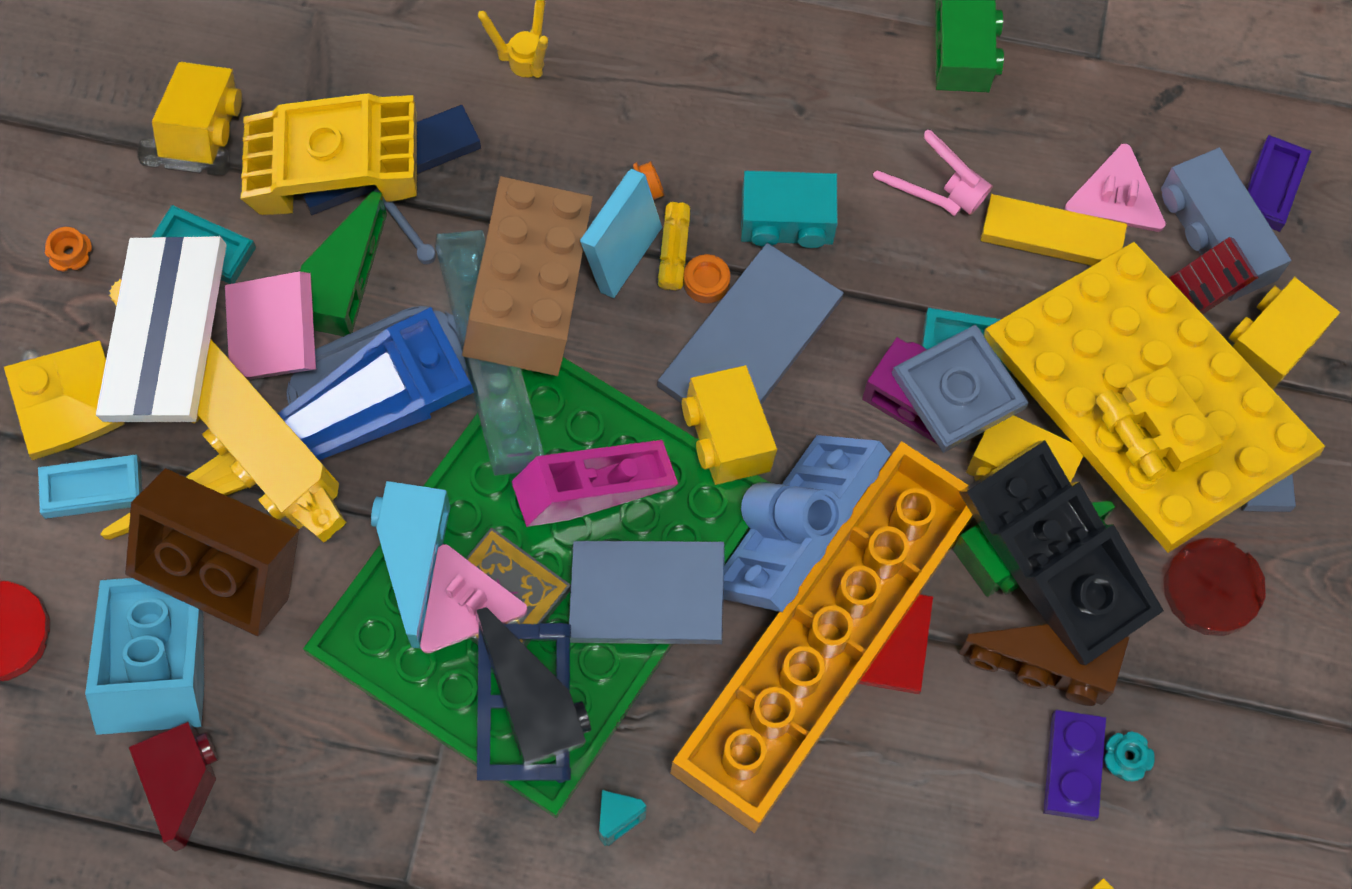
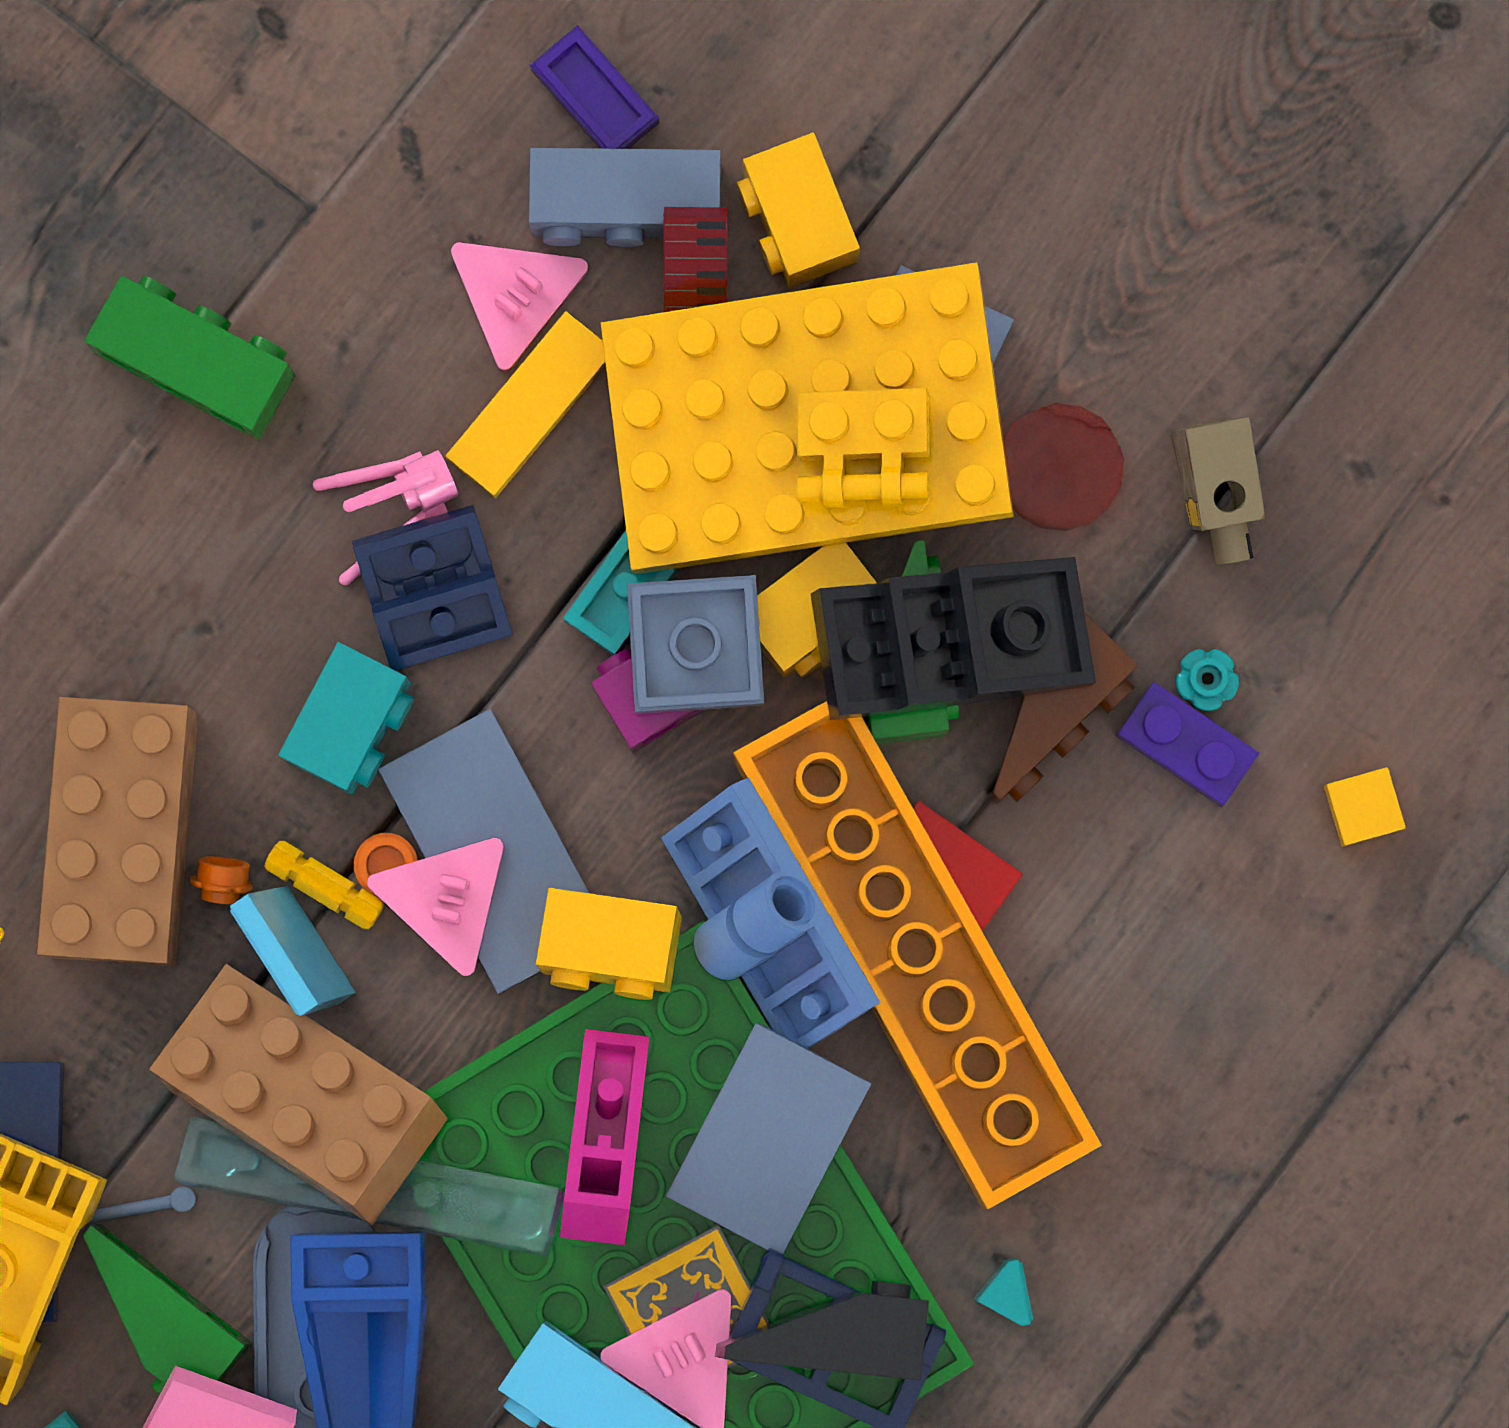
camera: 60 degrees left, 15 degrees up
(644, 107) = (118, 831): none -> medium nougat brick
(704, 320) = (445, 898): none -> bright pink piece
(902, 225) = (432, 588): none -> dark blue slope
(1285, 681) = (1205, 459): none -> dark tan torso

